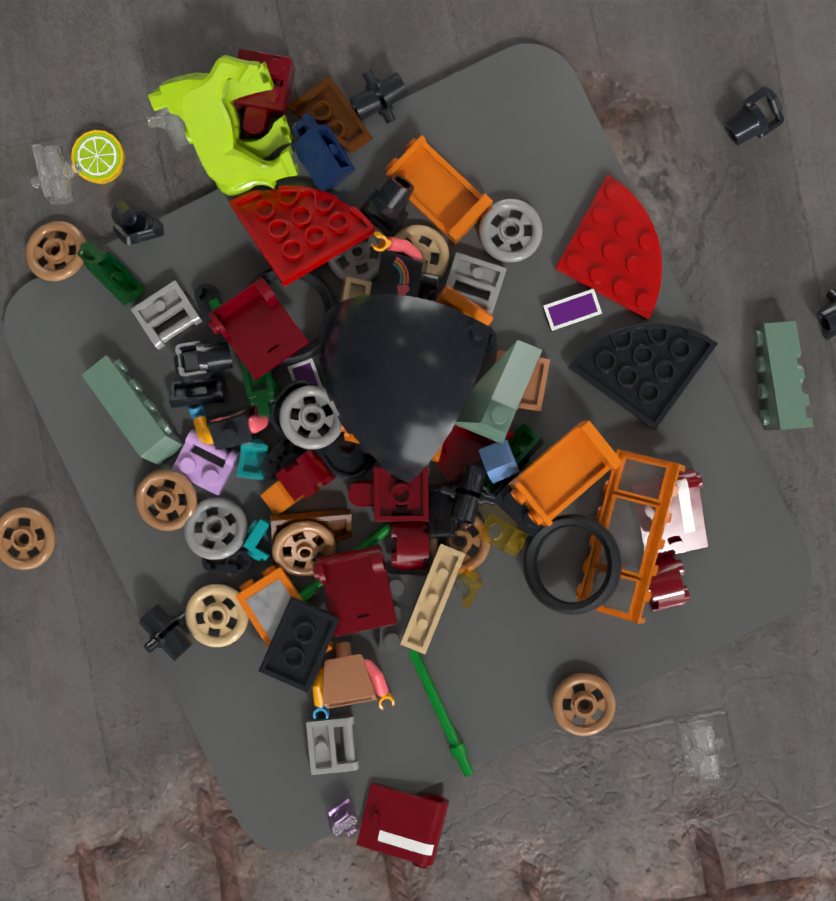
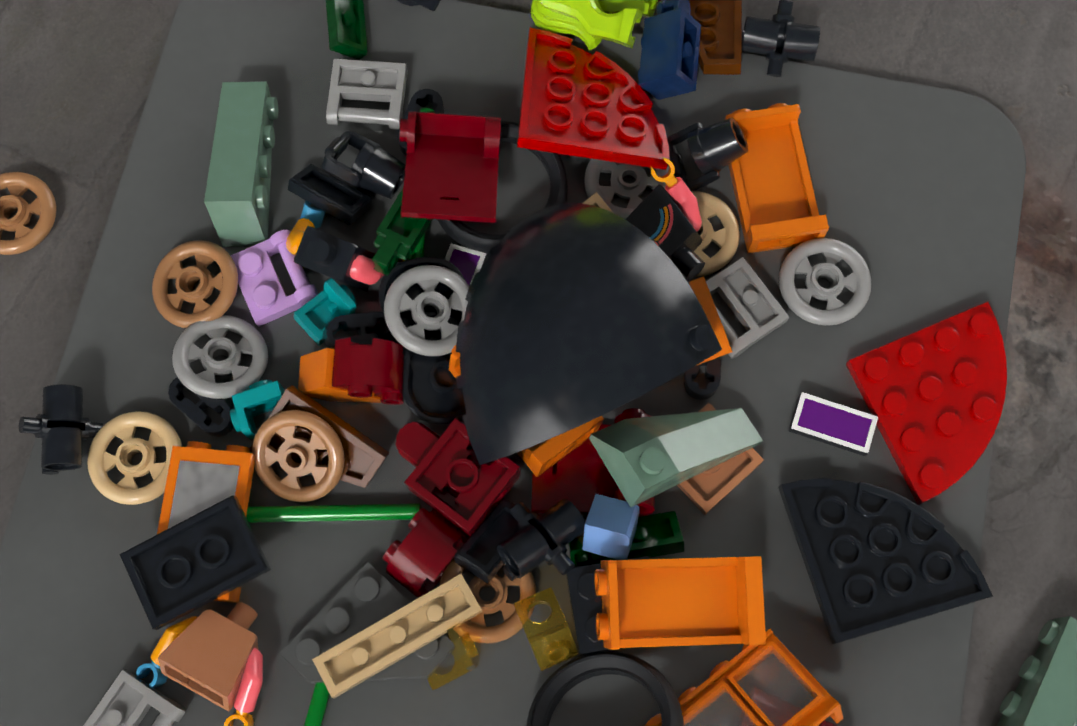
camera: 40 degrees right, 15 degrees down
(355, 586) = (319, 549): dark red door -> none

